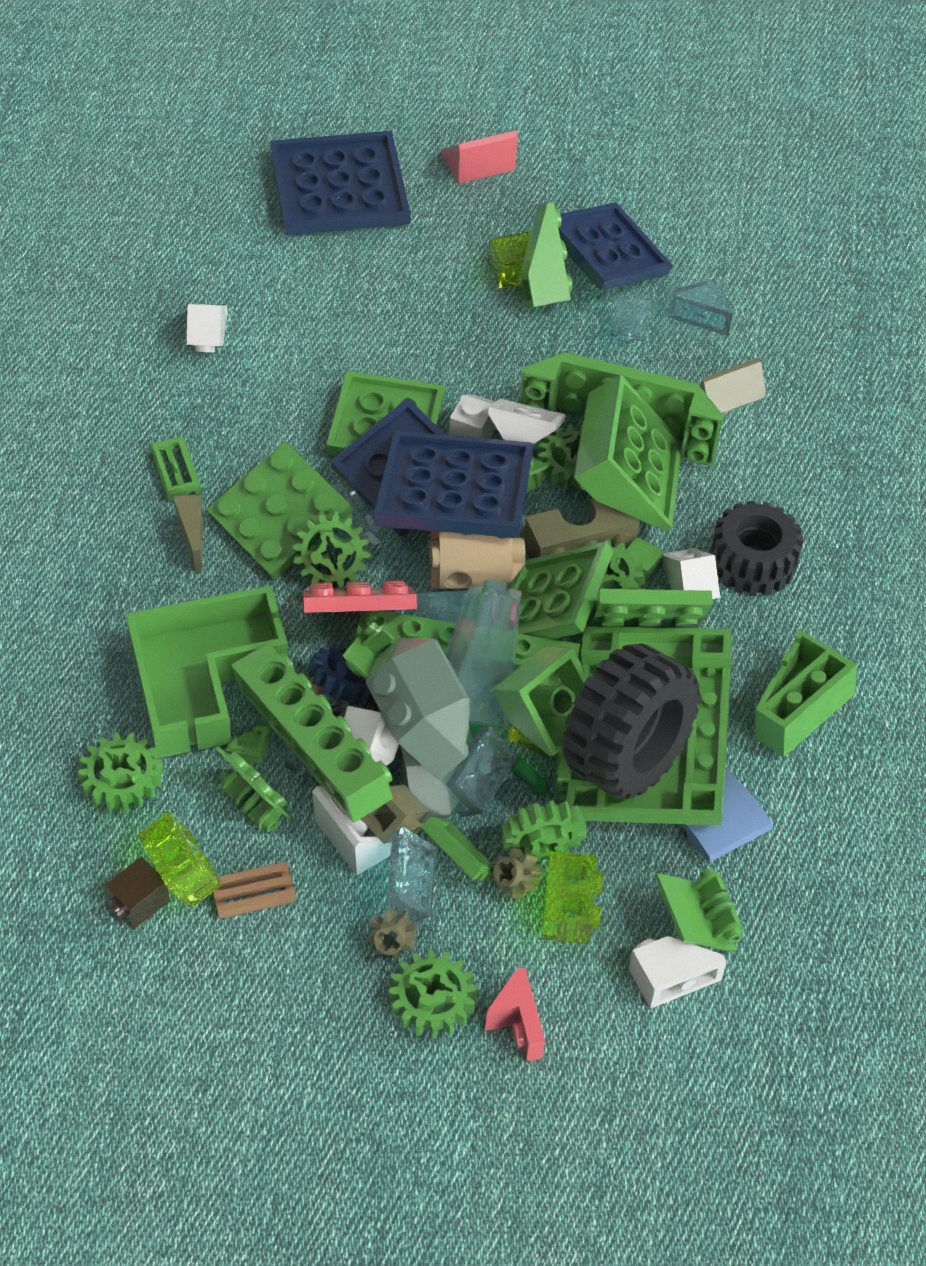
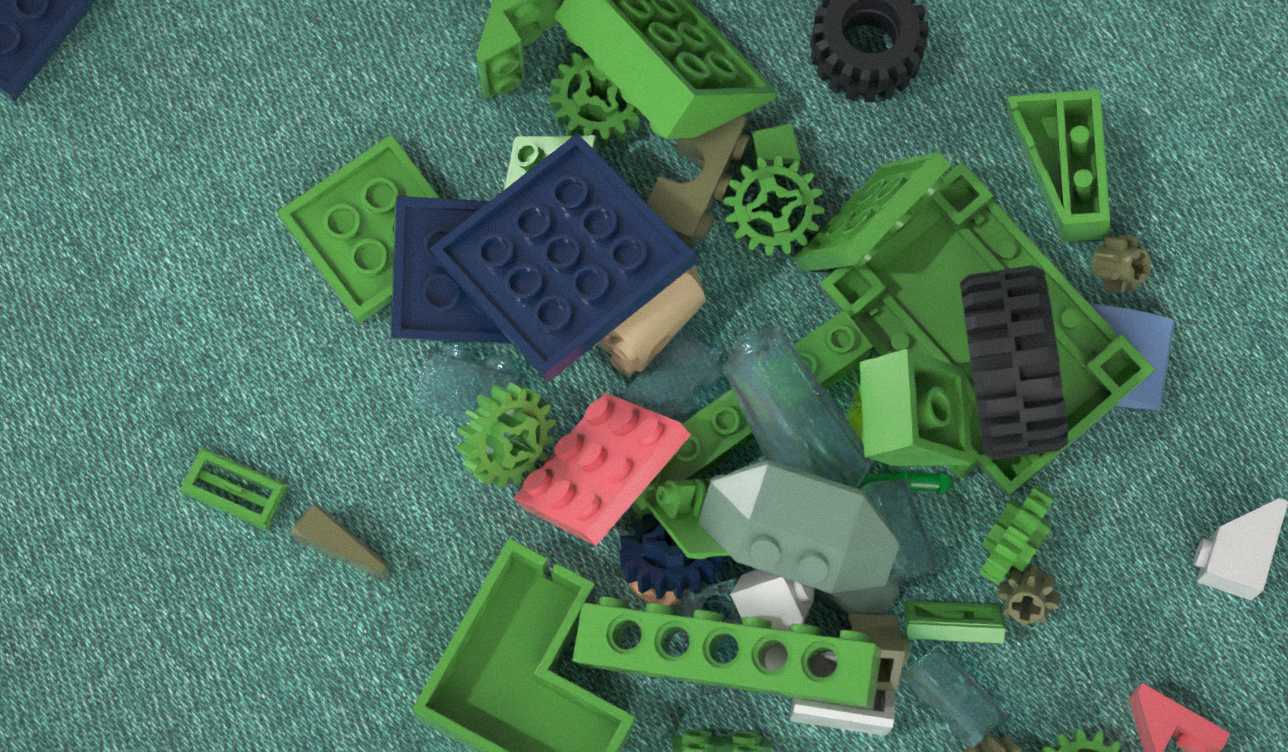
camera: 45 degrees left, 20 degrees up
(206, 326) = (72, 293): white slope -> none
(252, 745) = (653, 708): bright green tile -> none
(272, 504) = (398, 438): bright green plate -> none
(472, 418) = (460, 144): white slope -> none
(522, 421) = (532, 108): white slope -> none
(560, 590) = (765, 273): bright green plate -> none
(567, 897) = (1083, 577): clear neon green brick -> none
(691, 570) = (840, 124): white slope -> none
(702, 910) = (1209, 475): bright green hinge -> none
(780, 774) = (1121, 264): none -> olive gear

